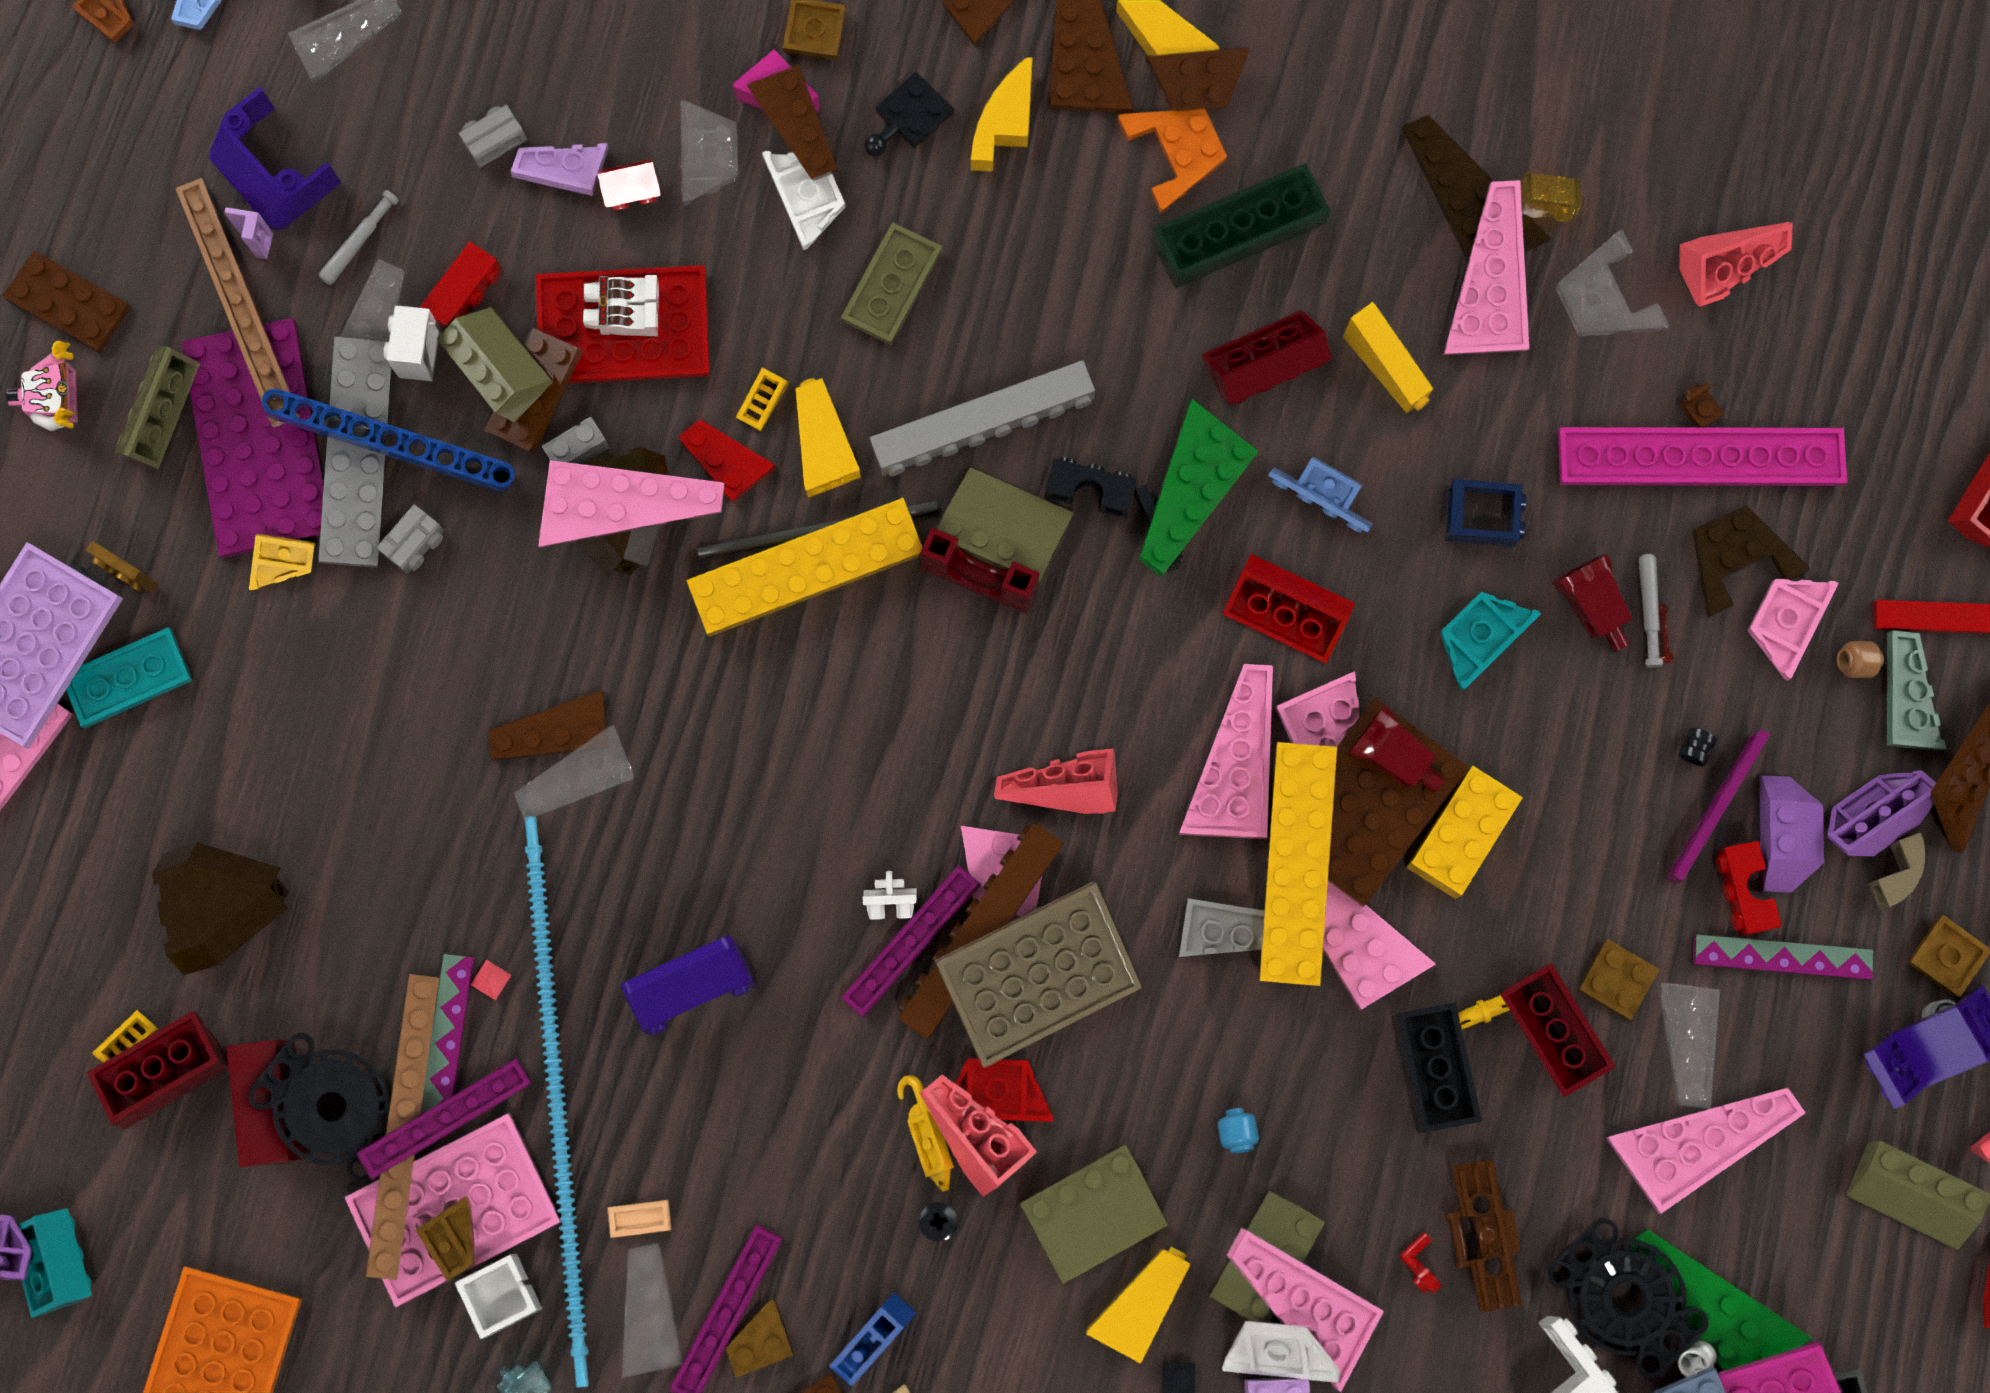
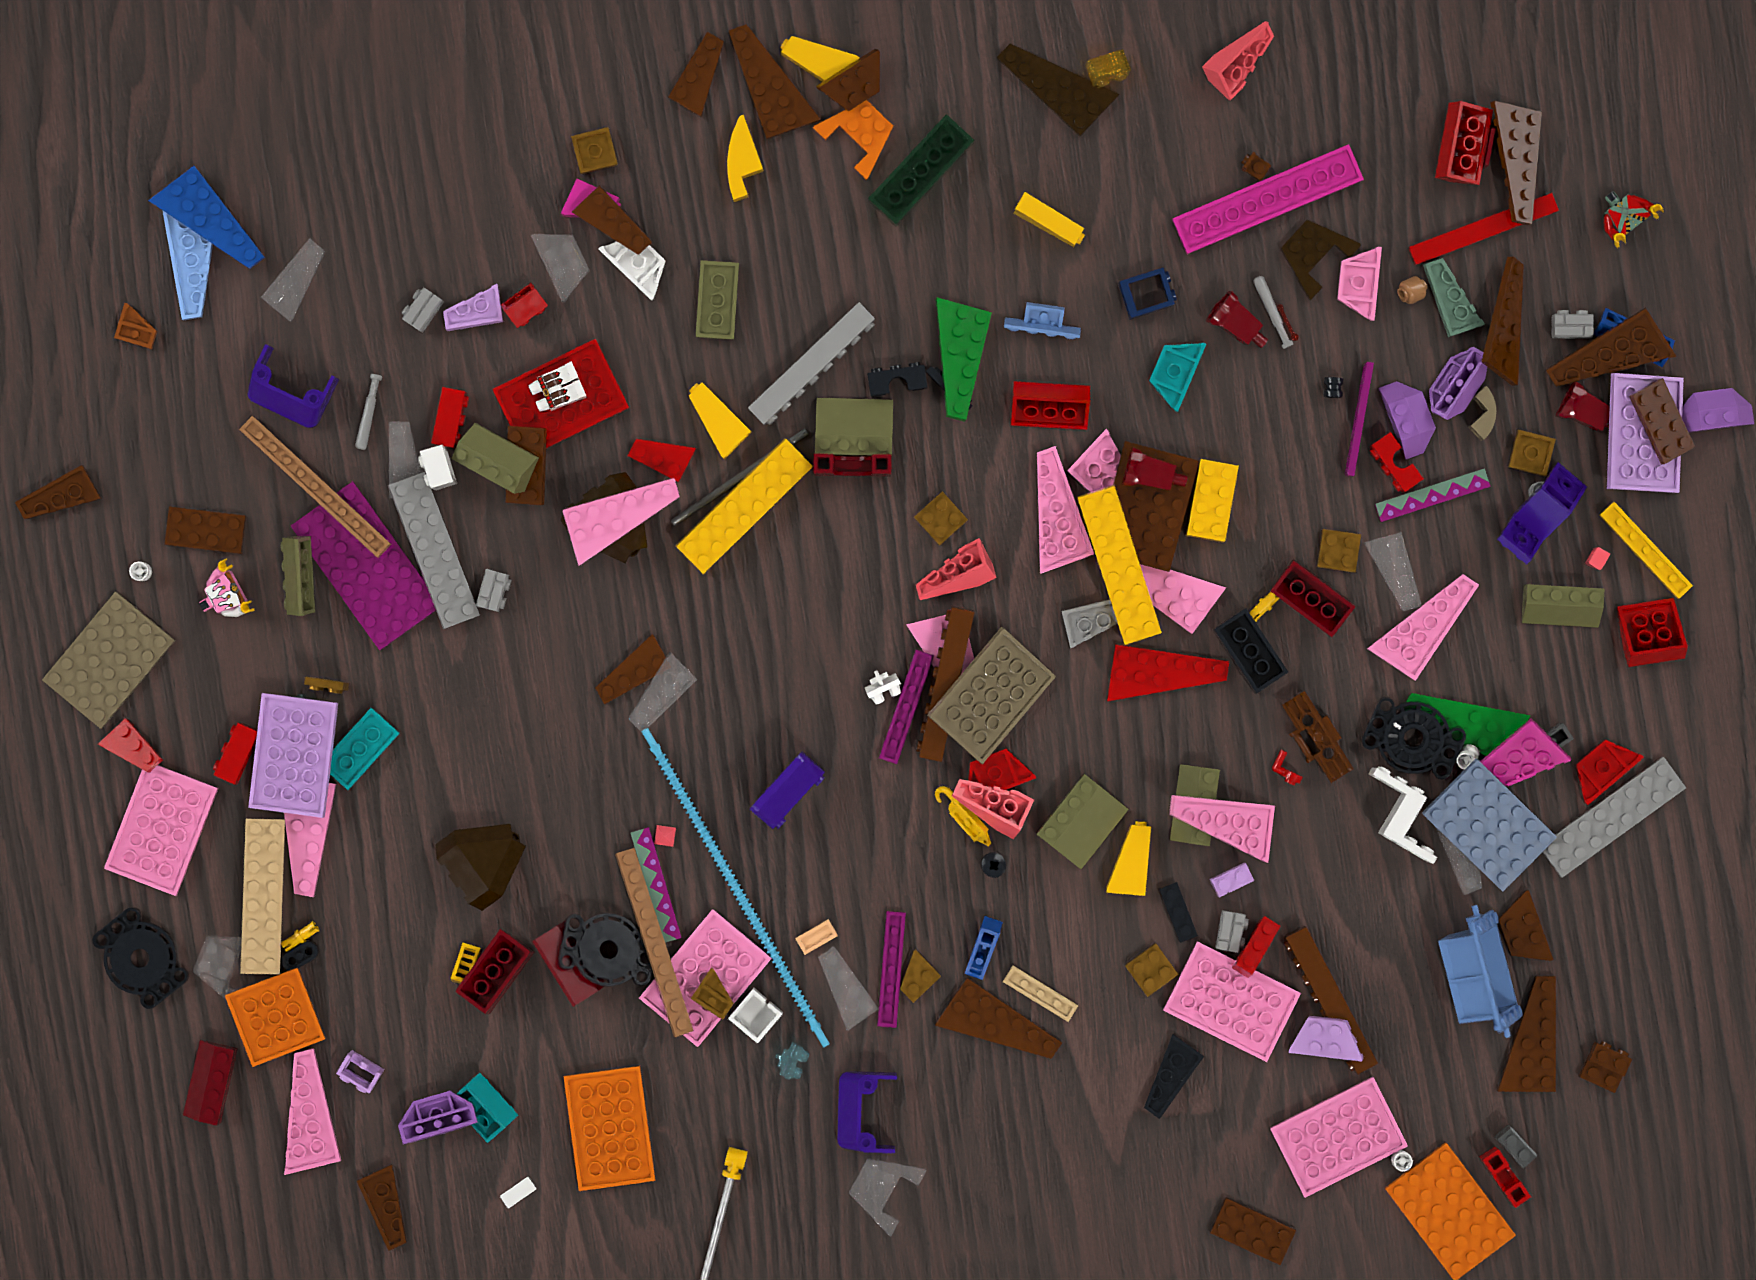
camera: 20 degrees left, 10 degrees up
(253, 229) = (306, 437): lavender panel -> none
(279, 559) = (418, 637): yellow wing -> none
(378, 430) = (463, 532): blue beam -> none
(443, 1119) = (677, 928): magenta tile -> none
(577, 444) = (568, 489): light grey brick -> none
(753, 394) = (673, 392): yellow slope -> none
(911, 111) = (681, 180): black plate -> none
(1071, 700) = (940, 518): none -> pearl gold plate
(1238, 1131) = (1147, 737): dark azure head -> none
(1267, 357) = (972, 249): dark red slope -> none
(1280, 1039) = (1152, 671): none -> red wing
(1280, 1352) = (1223, 855): white wing -> none
(1493, 294) = (1096, 145): bright pink wing -> none
(1596, 300) = (1162, 122): clear wing -> none

